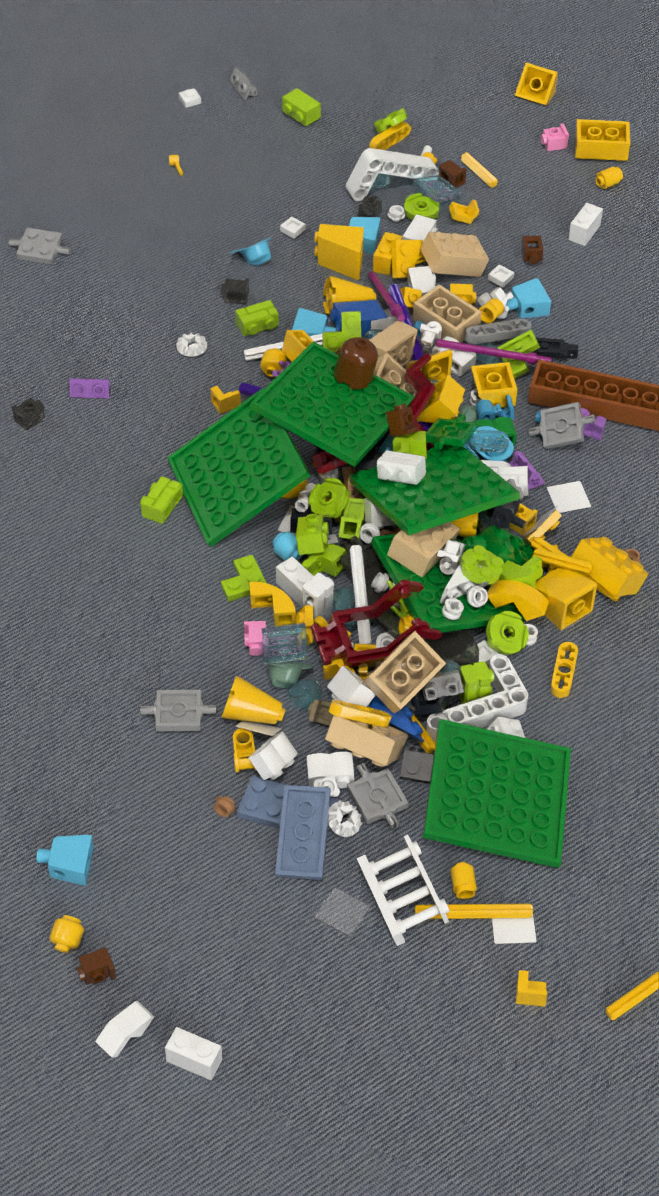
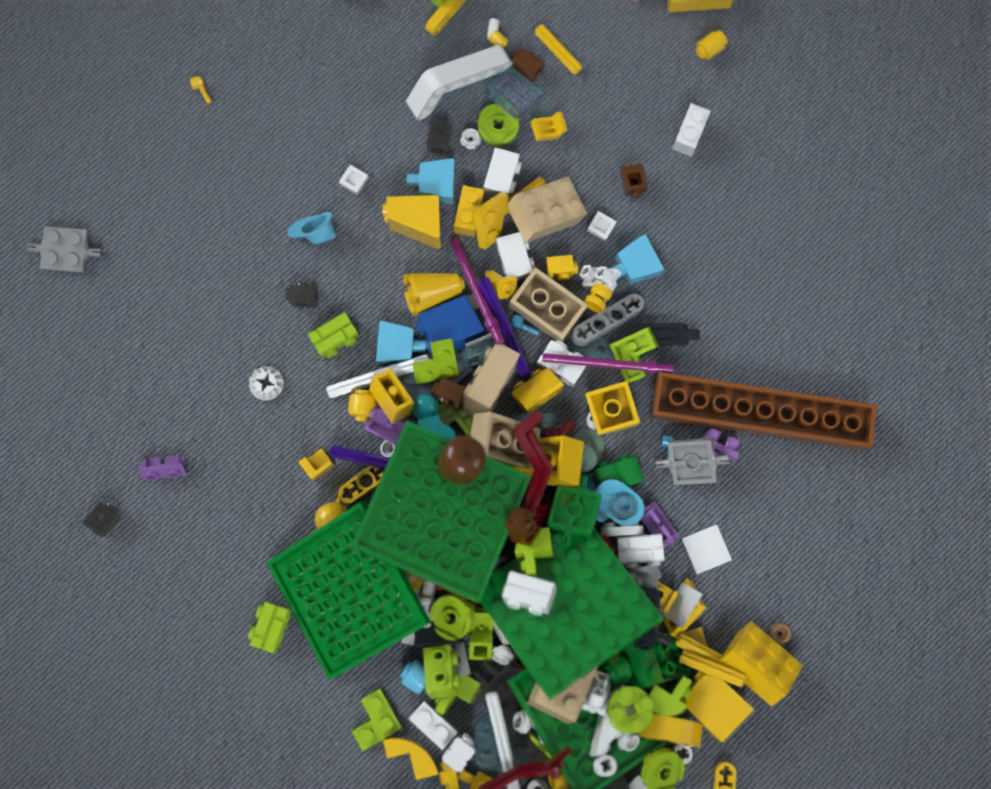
camera: 10 degrees left, 30 degrees up
(429, 336) = (534, 342): white hips -> none
(486, 410) = (609, 443): dark azure leg -> none

